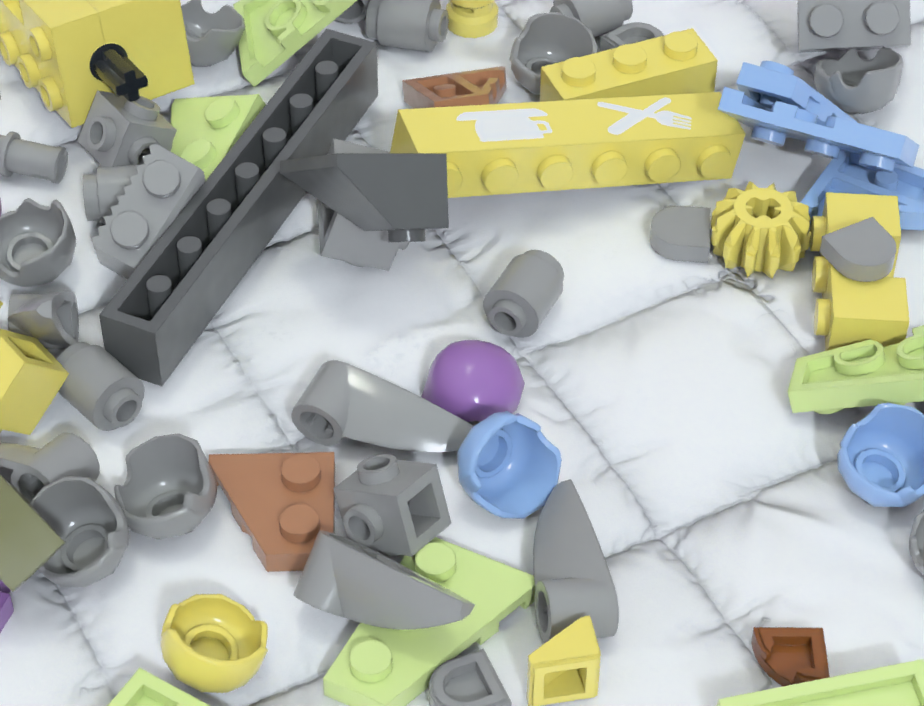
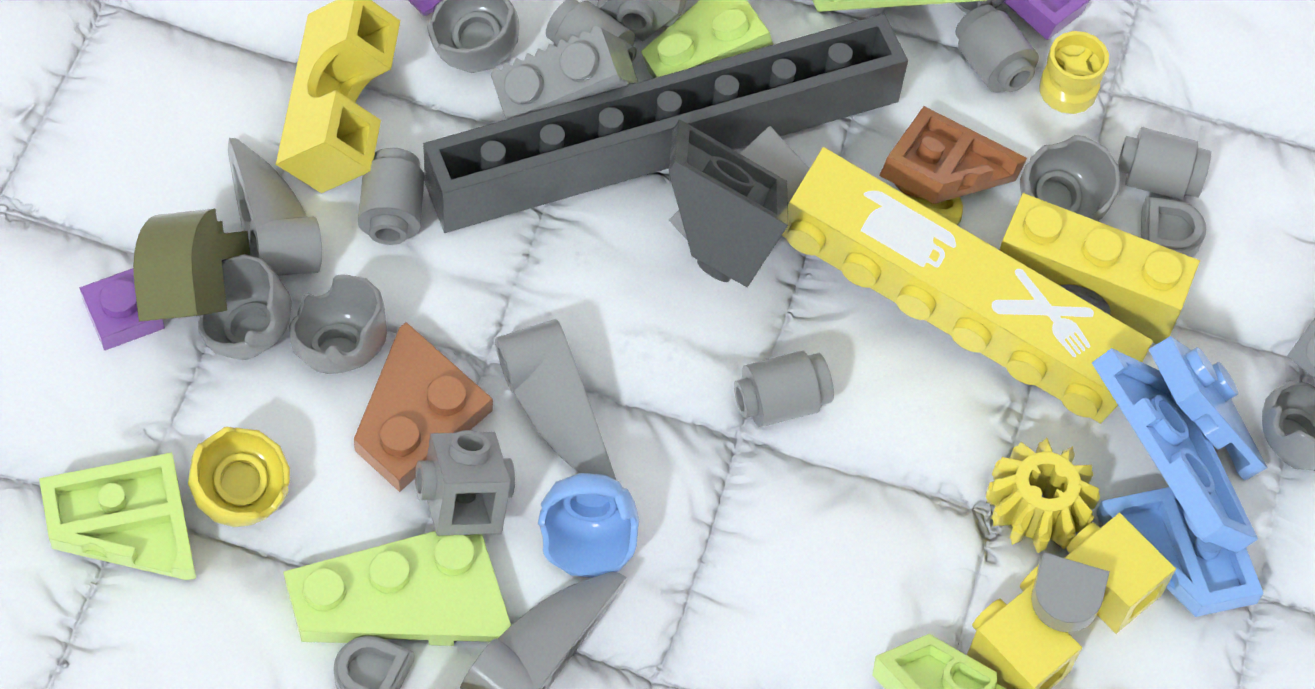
camera: 40 degrees right, 15 degrees up
(47, 317) = (404, 109): light grey piece -> none
(374, 589) = (380, 523): light grey piece -> none
(474, 380) = (658, 432): medium lavender hair -> none
(682, 233) = (984, 437): light grey tile -> none

